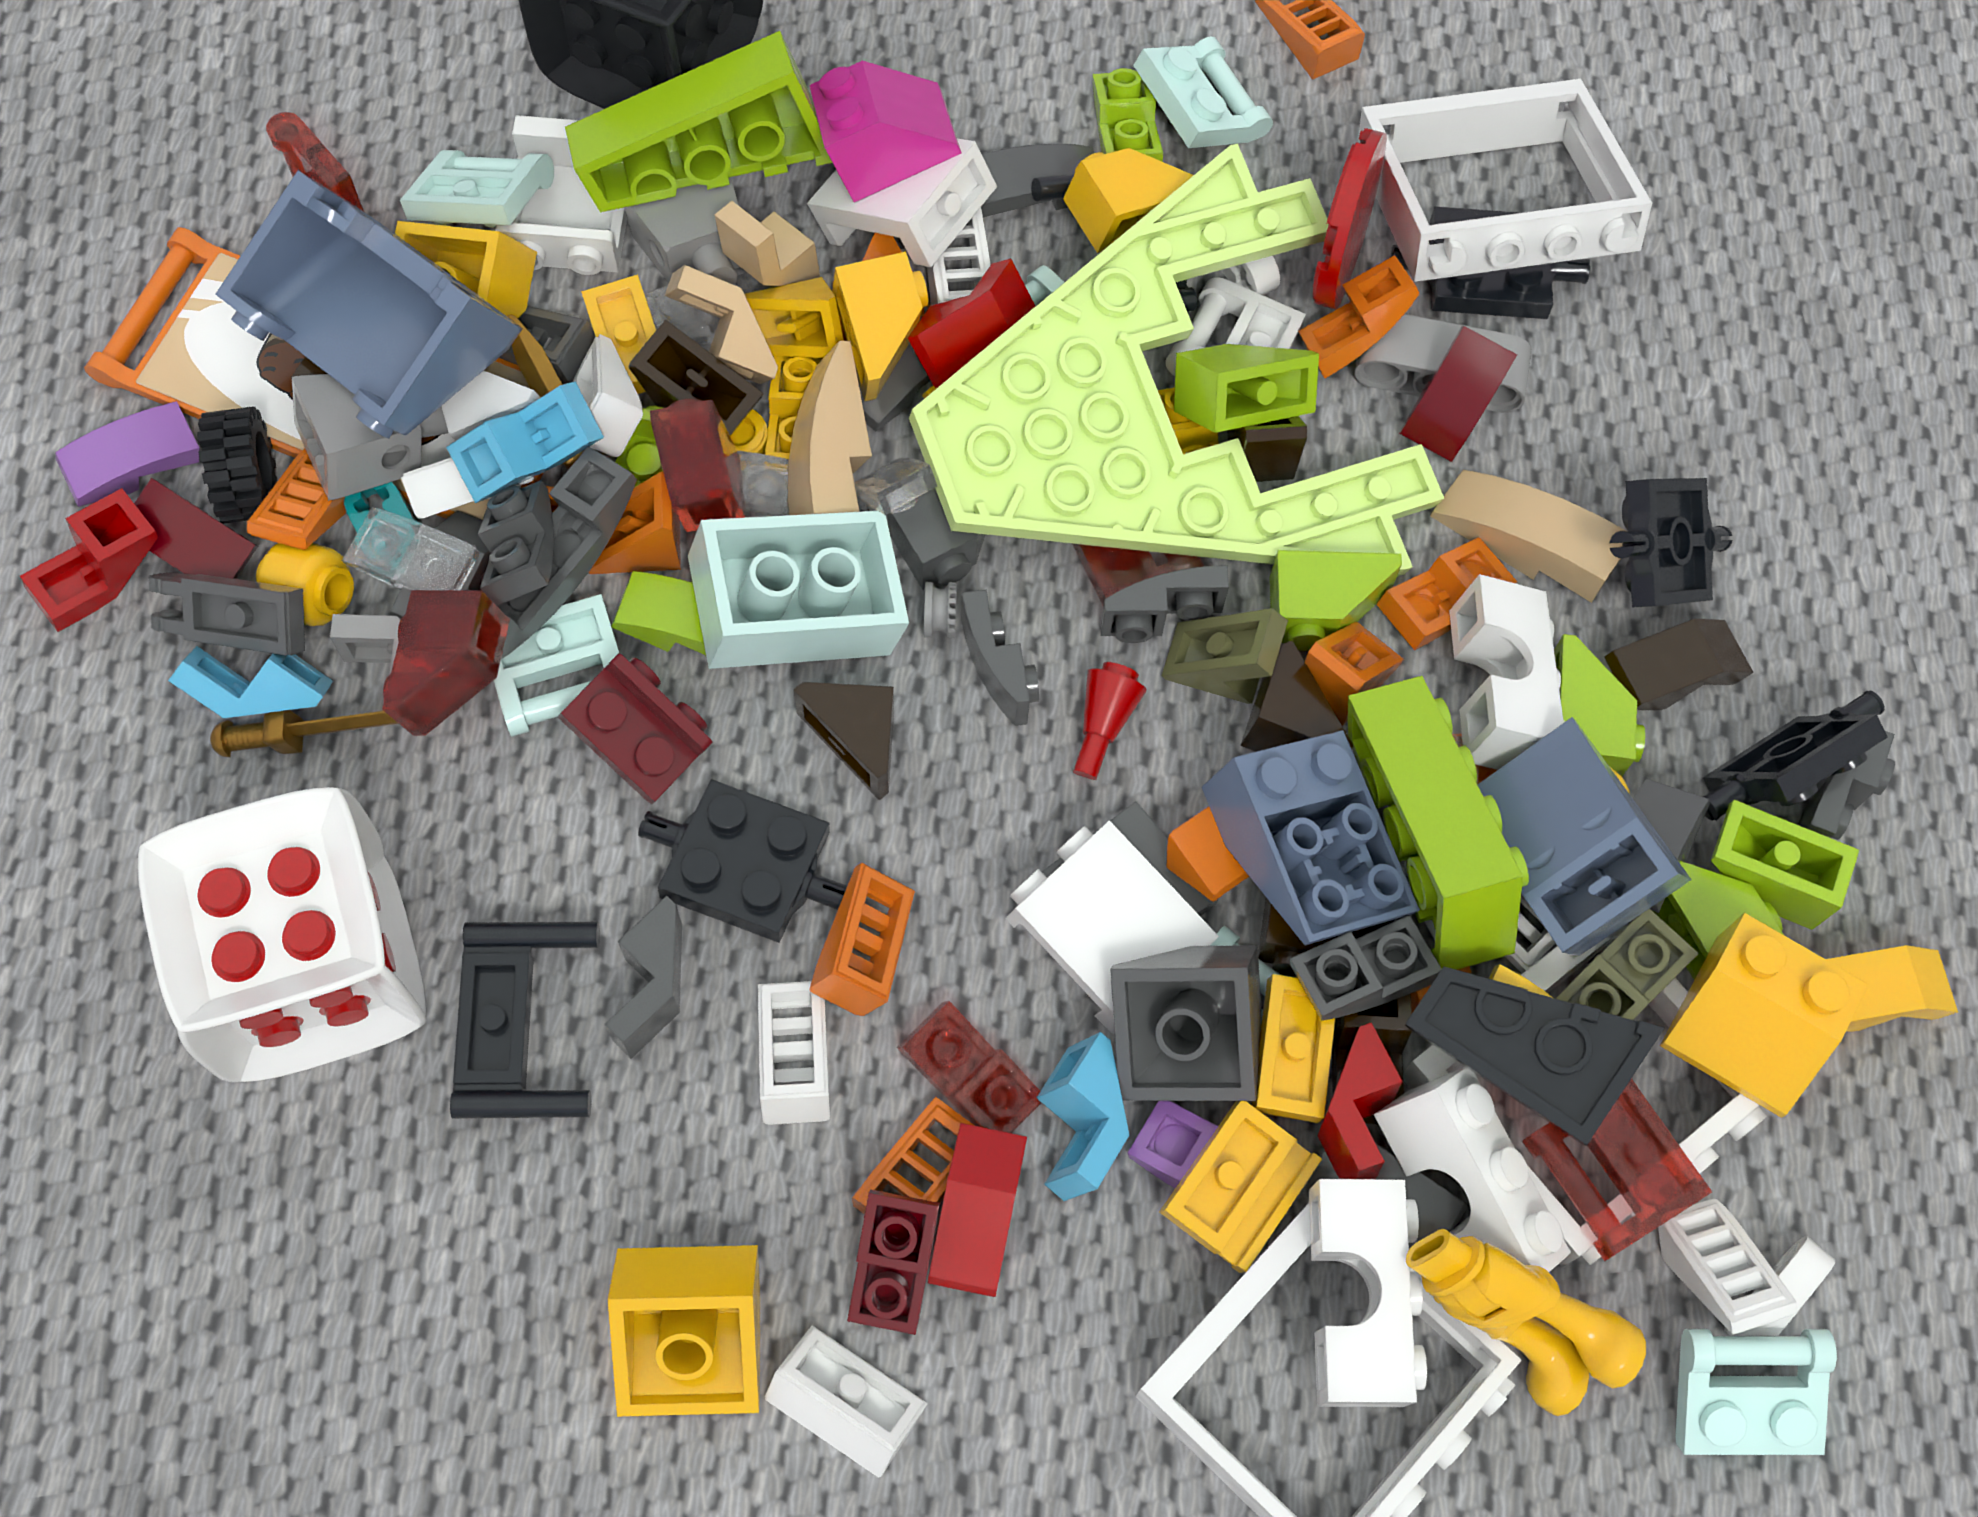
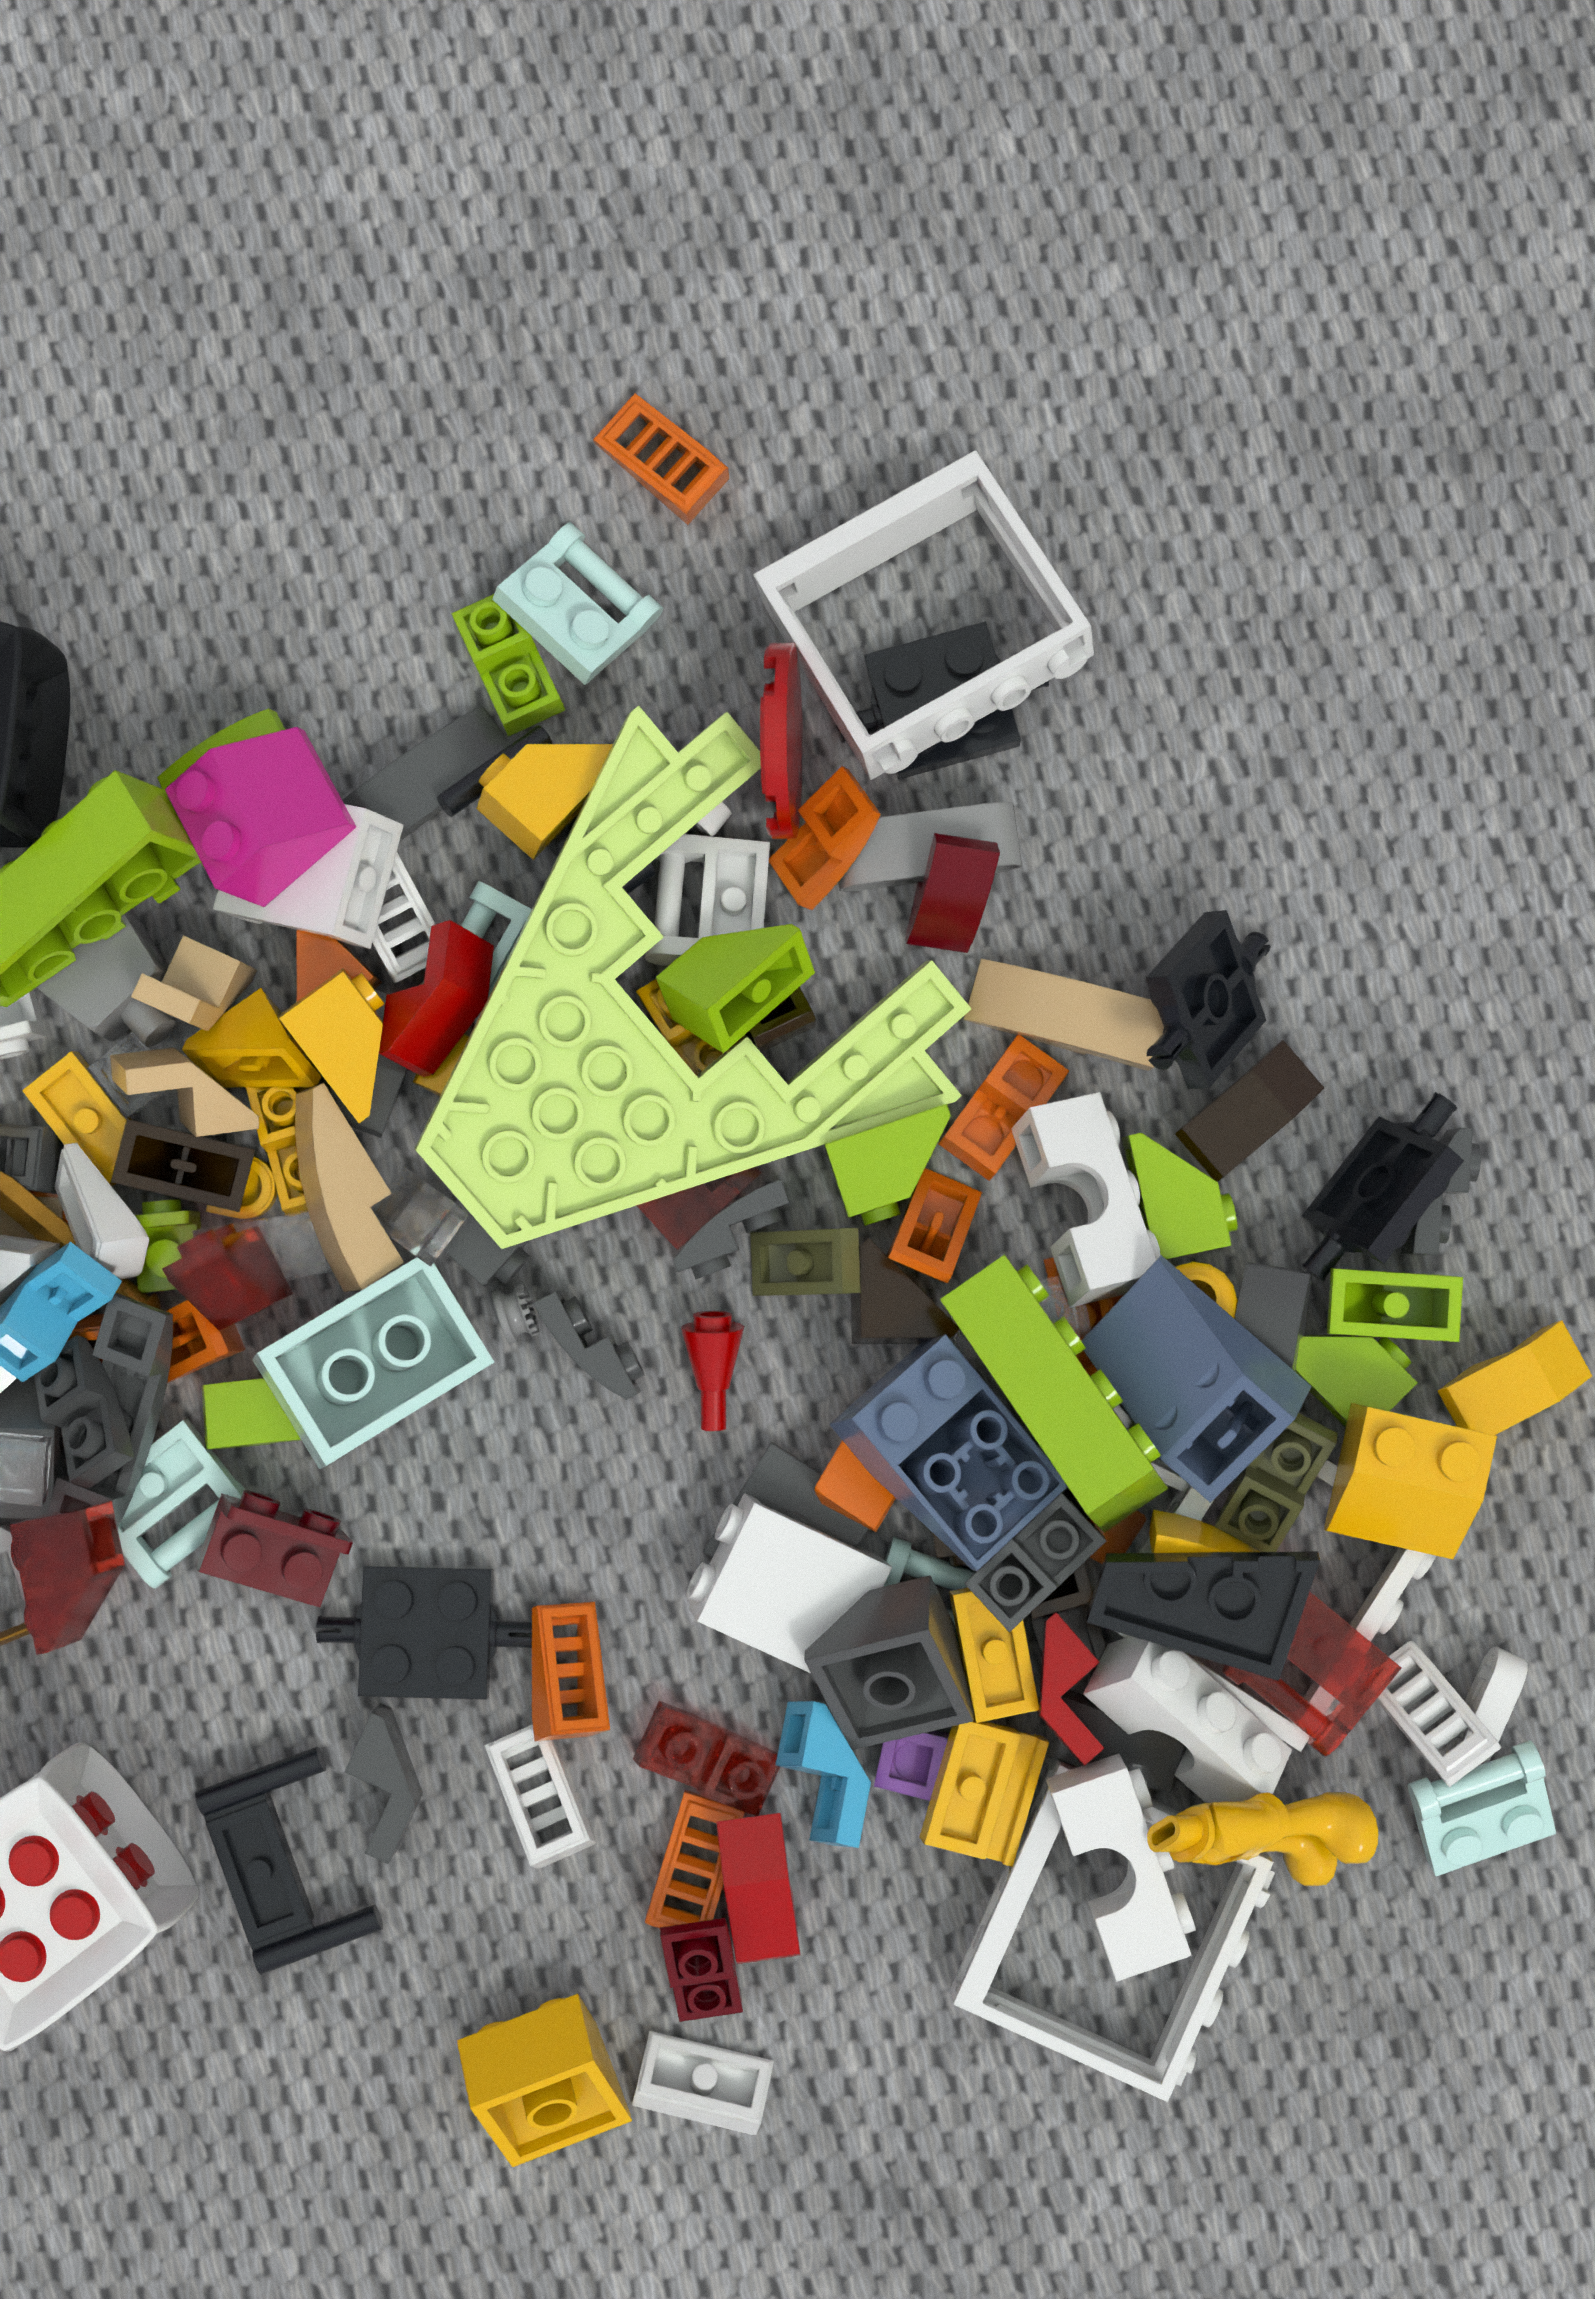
camera: 15 degrees left, 20 degrees up
(854, 725) = (482, 1468): dark brown slope -> none

